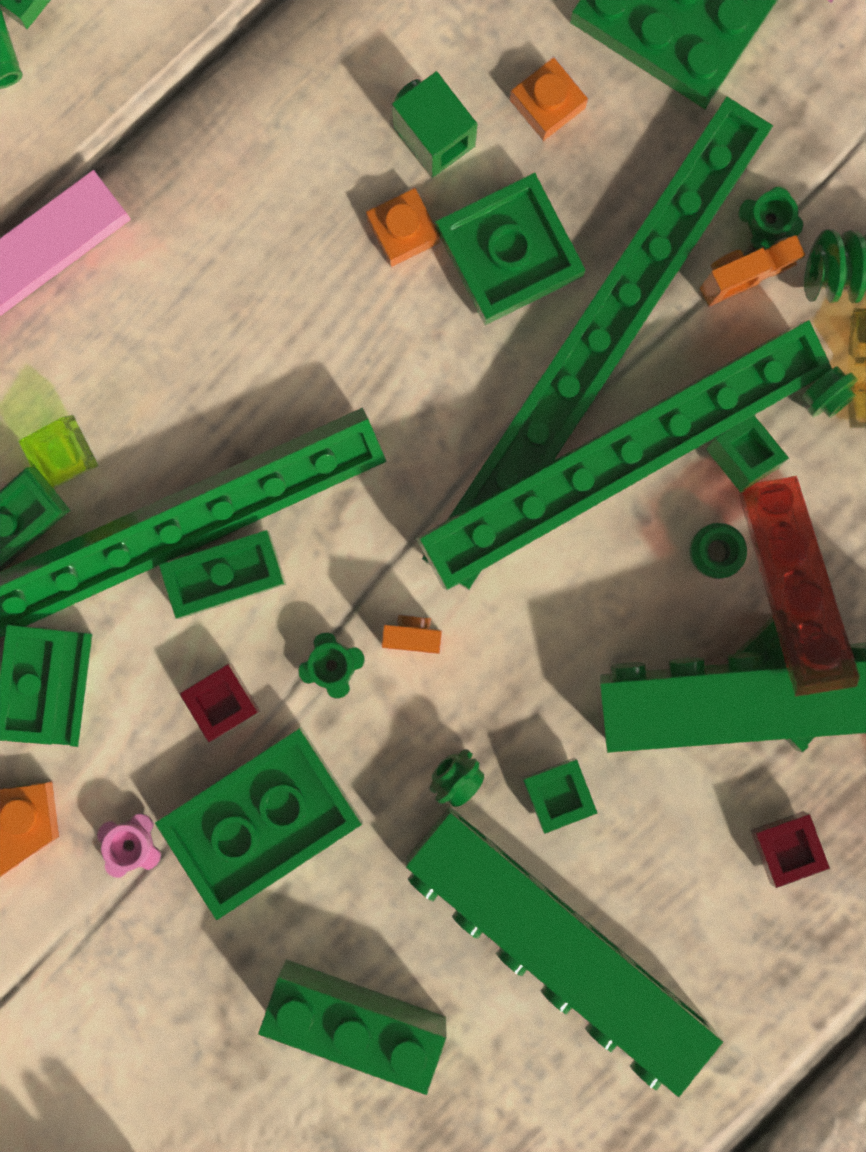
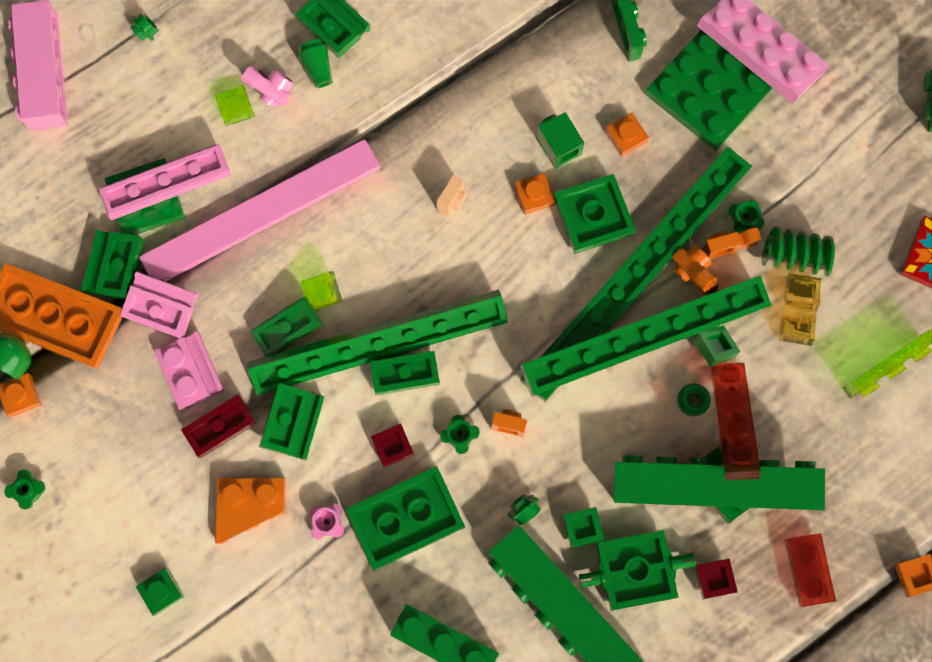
camera: 10 degrees right, 10 degrees down
(259, 251) = (452, 196): none -> light nougat plate
(658, 854) = (637, 570): none -> green plate
(690, 319) = (693, 266): none -> orange plate
(830, 393) = (768, 318): green plate -> none

